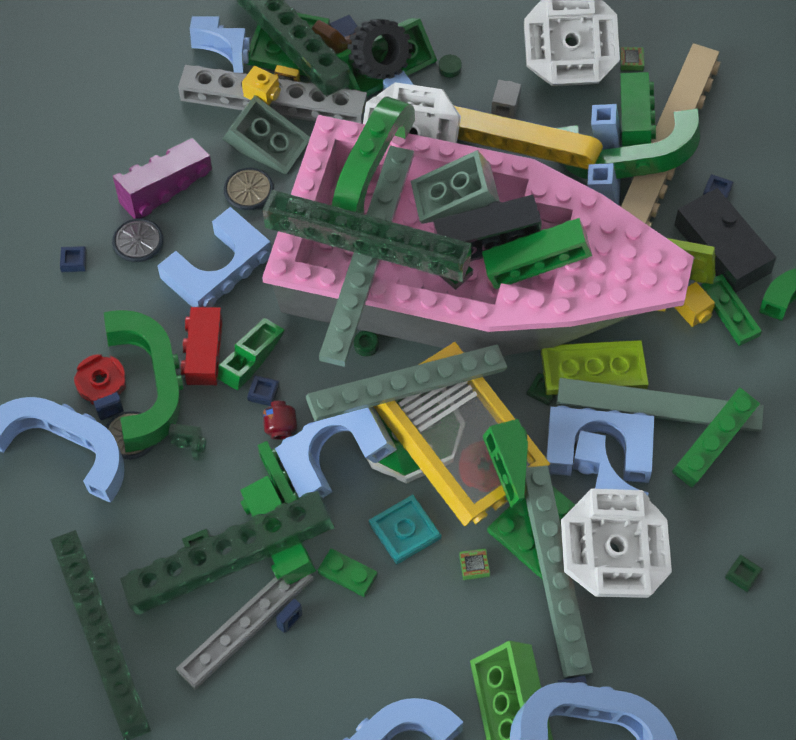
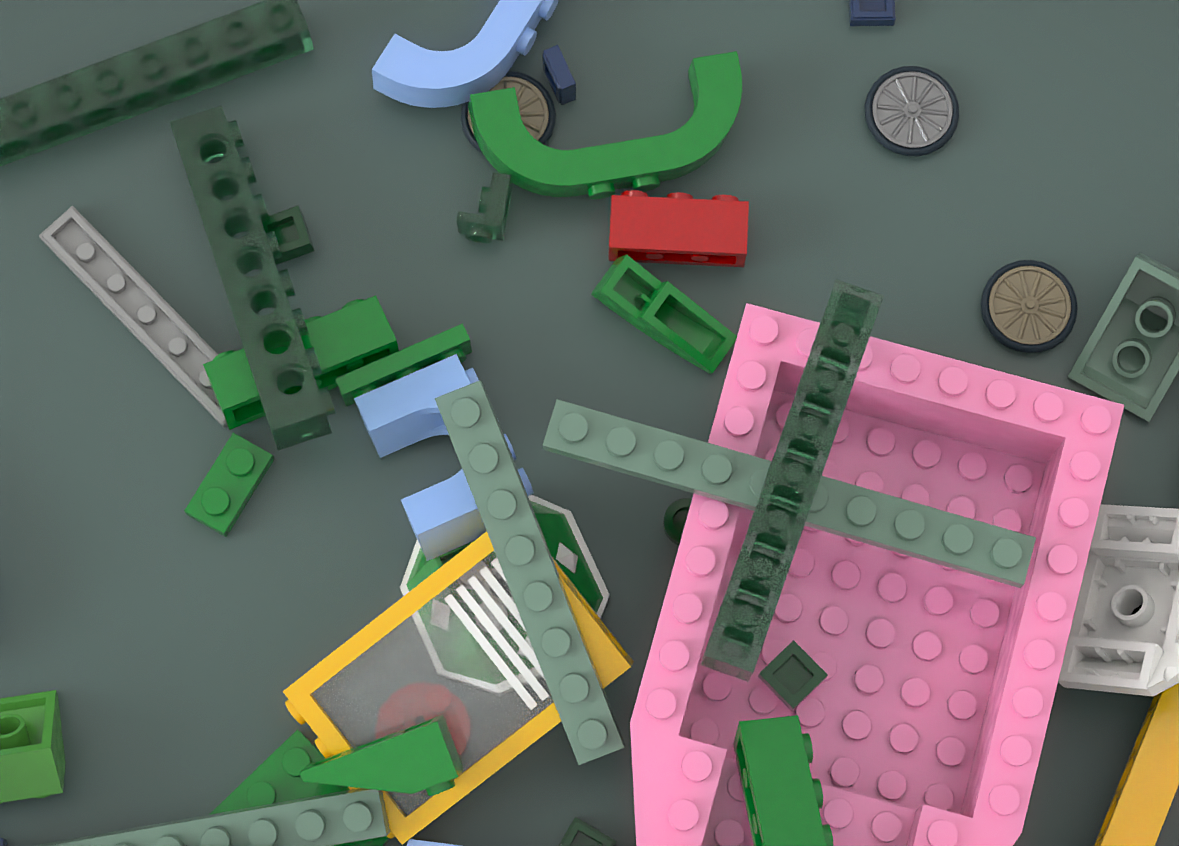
camera: 90 degrees right, 15 degrees up
(102, 366) = (615, 84): red plate -> none
(161, 178) = (1040, 145): magenta wedge -> none
(205, 287) = (798, 225): light blue arch -> none
(263, 390) = (591, 339): dark blue tile -> none
(279, 420) = (520, 365): dark red head -> none
(289, 616) = (148, 384): dark blue tile -> none
(387, 120) = (921, 456): green arch -> none
(404, 529) = (307, 584): teal tile -> none
(455, 188) = (925, 665): sand green slope -> none
(474, 564) = (232, 704): tile -> none
(492, 224) = (839, 726): black brick -> none

